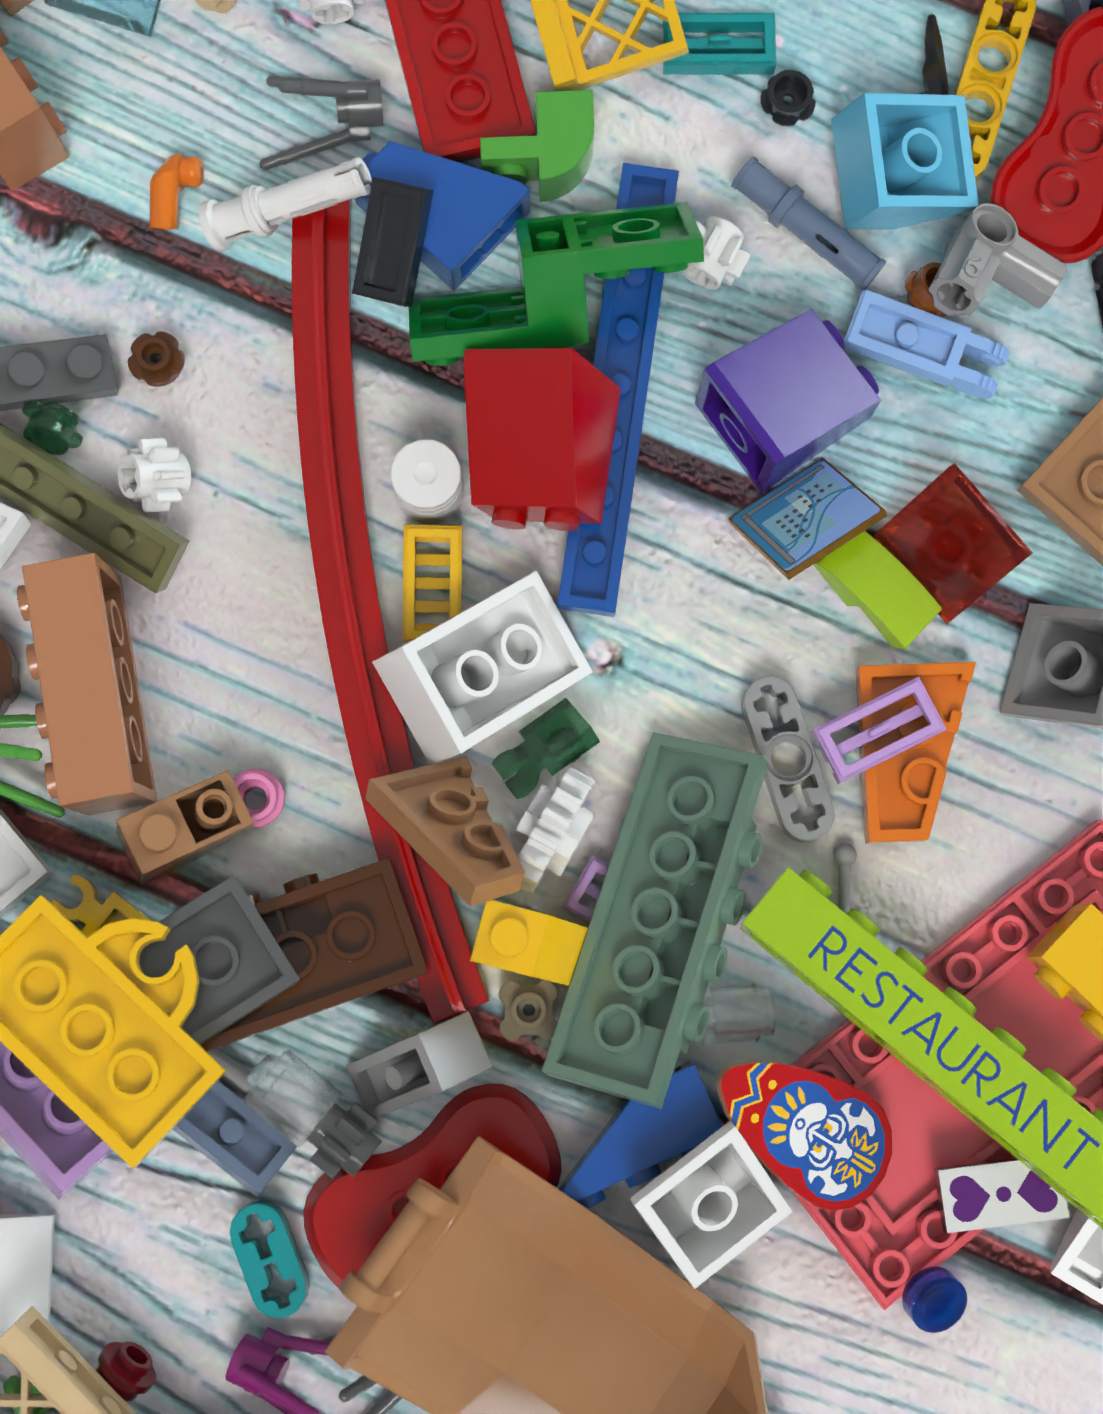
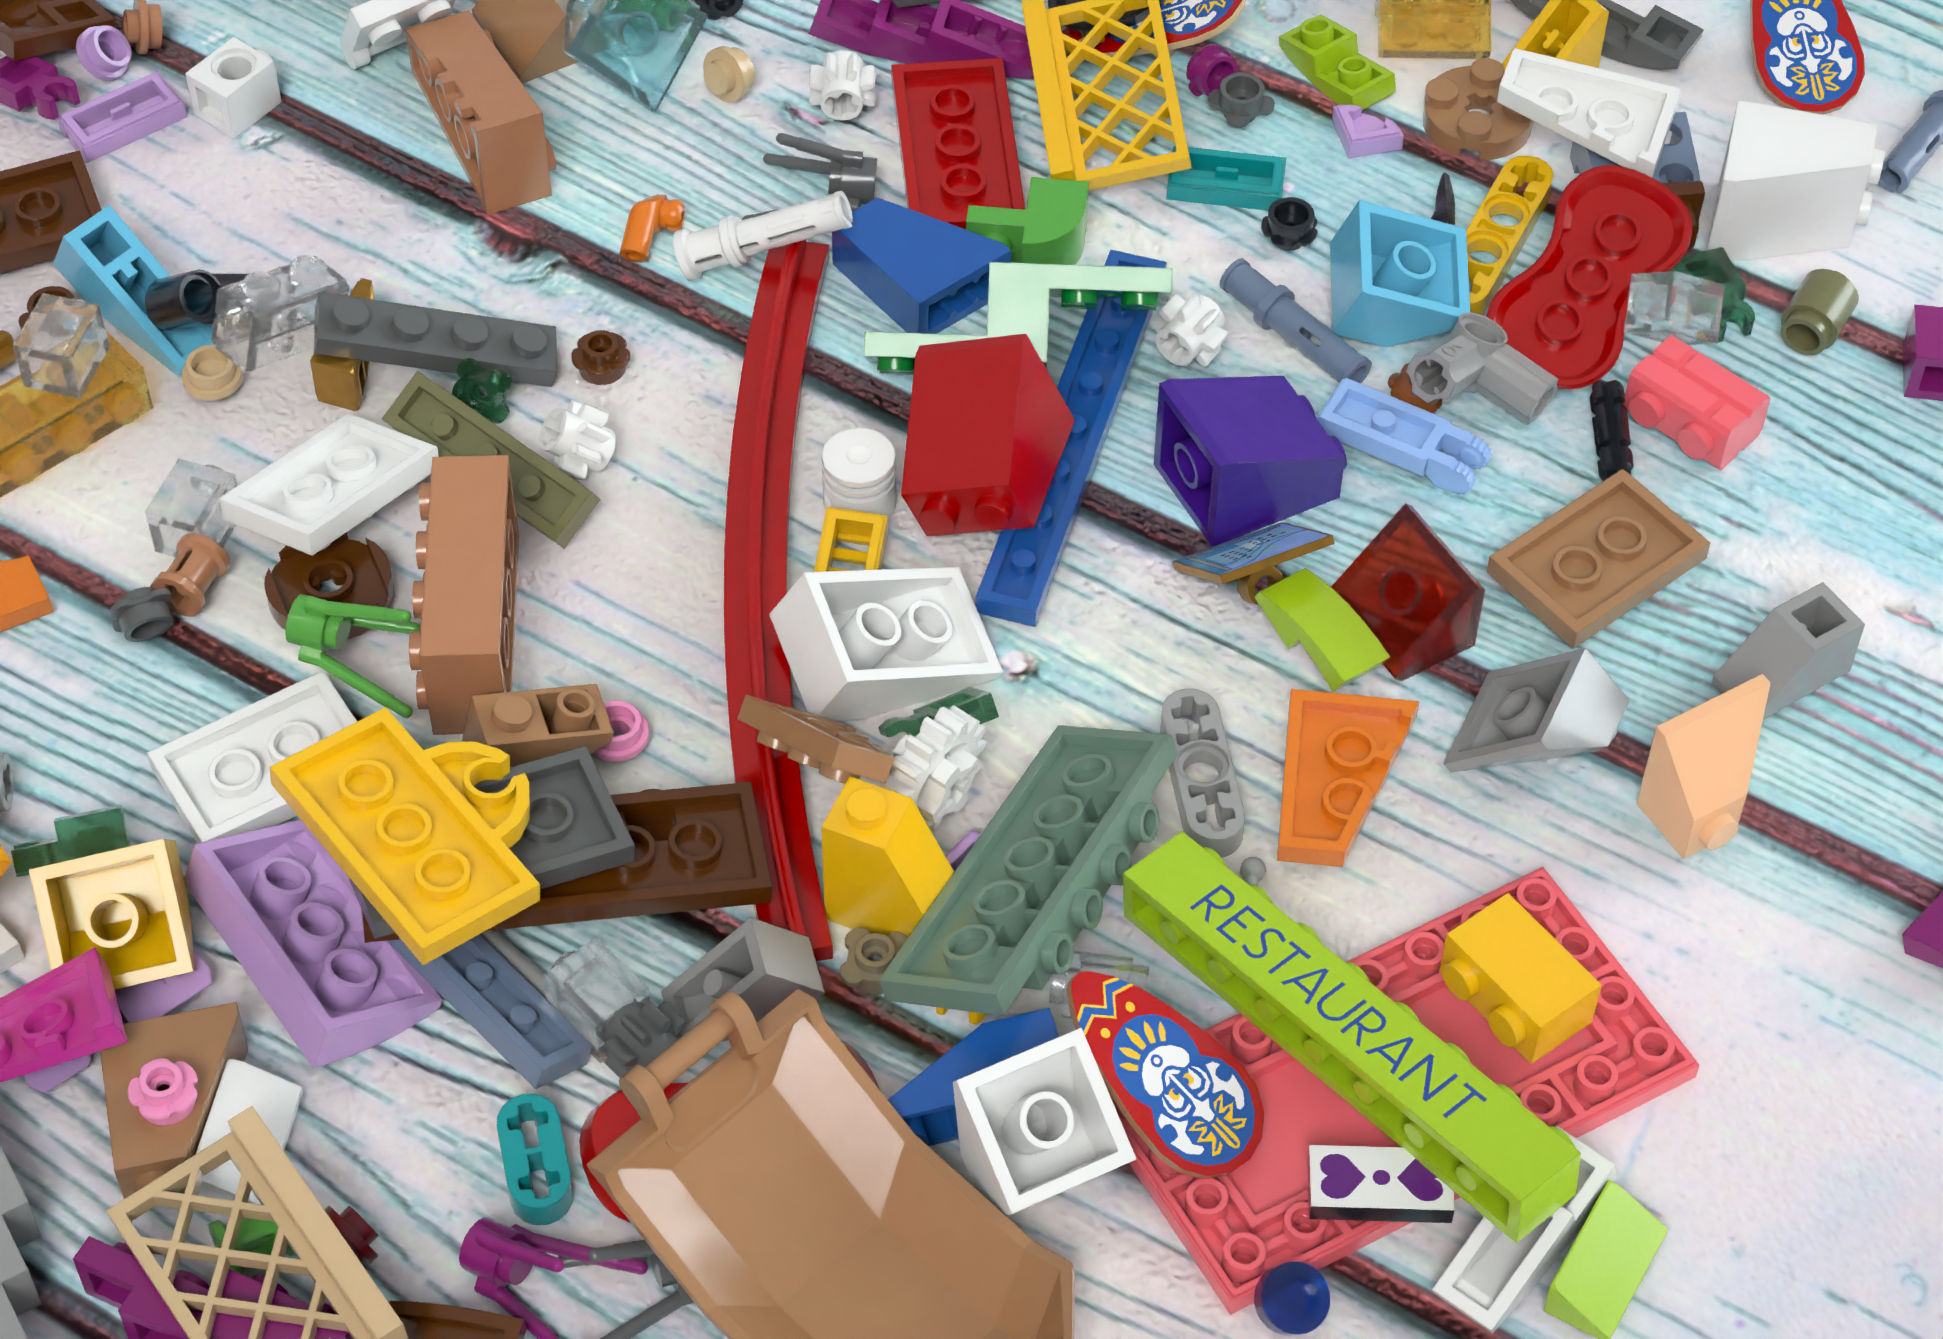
camera: 10 degrees right, 30 degrees down
(392, 241) = (863, 273): black tile -> none
(832, 753) = (1306, 749): lavender tile -> none

